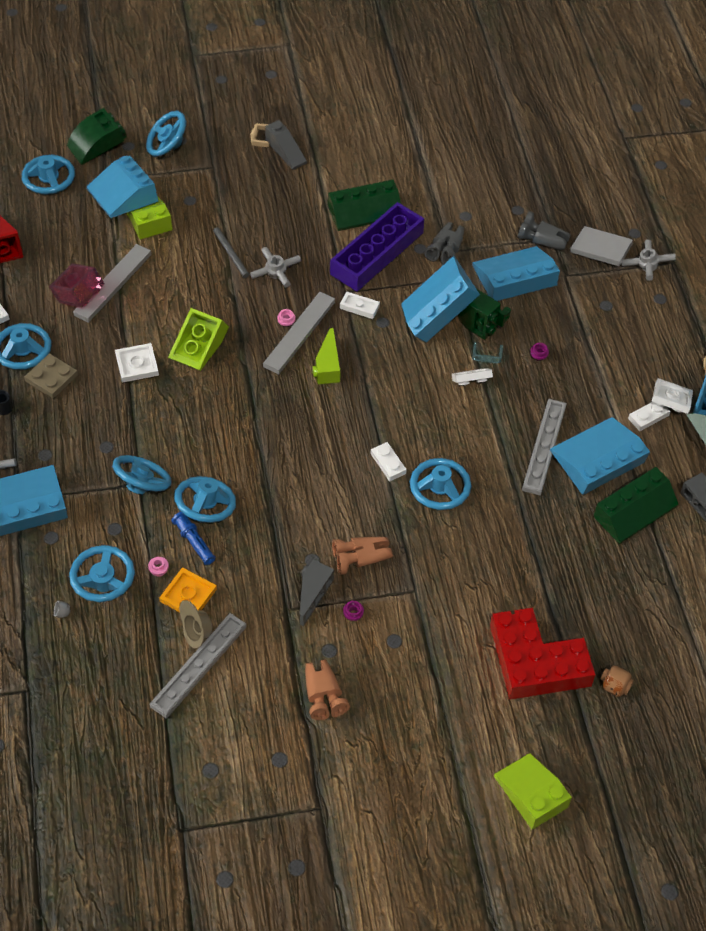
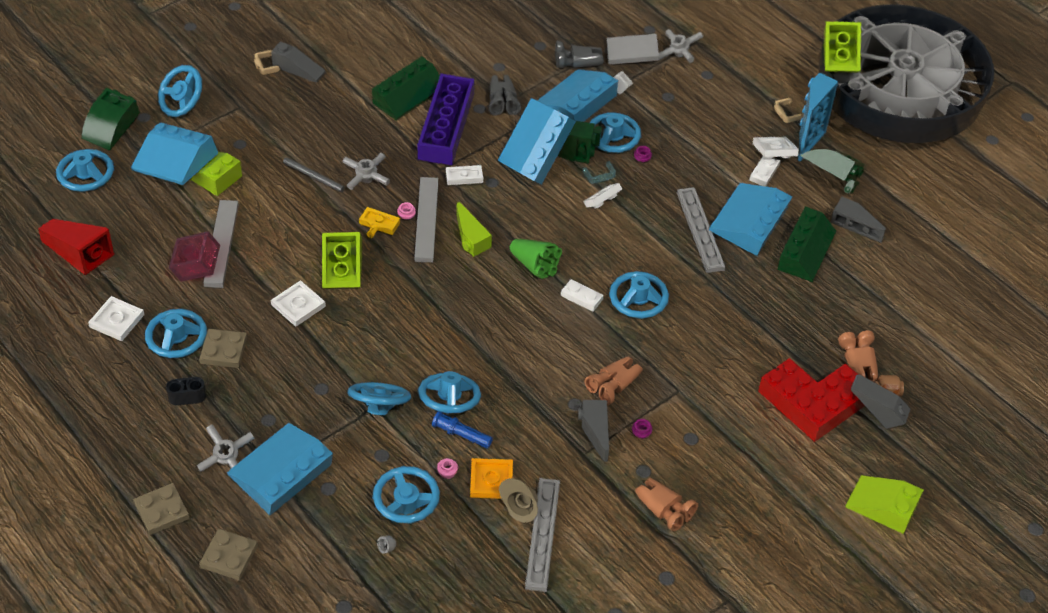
camera: 30 degrees left, 5 degrees down
(254, 317) = (378, 221): none -> yellow plate
(369, 409) = (537, 256): none -> bright green cone
(528, 318) = (615, 130): none -> dark azure piece
(568, 274) = (623, 82): none -> white slope
(591, 691) = (882, 403): none -> dark grey slope
(609, 640) = (863, 357): none -> nougat piece

